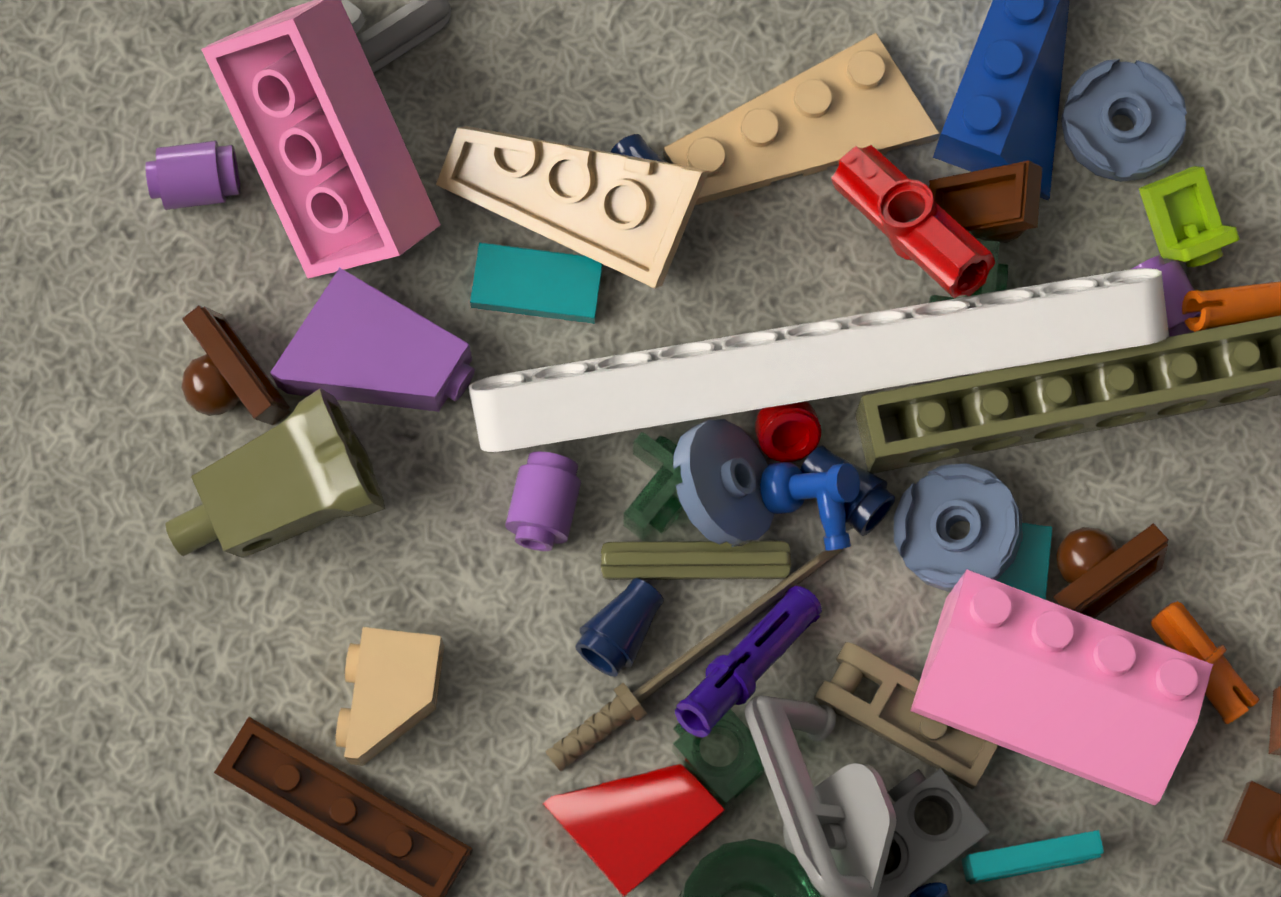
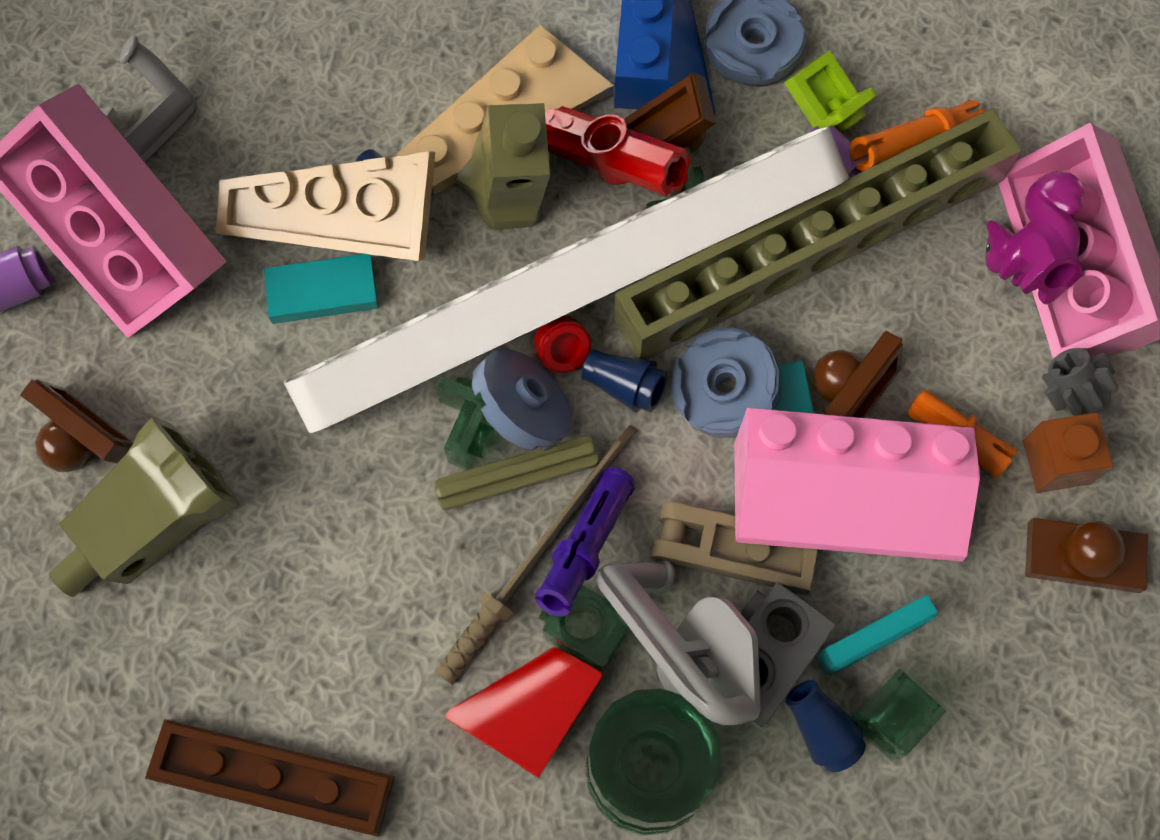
camera: 15 degrees left, 5 degrees down
(373, 351) = (195, 378): medium lavender slope -> none
(393, 689) = (284, 658): tan slope -> none
(543, 501) = (374, 460): medium lavender brick -> none
(618, 630) = (468, 549): dark blue cone -> none
(785, 210) = (506, 150): none -> olive piece
(786, 488) = (576, 390): blue piece -> none

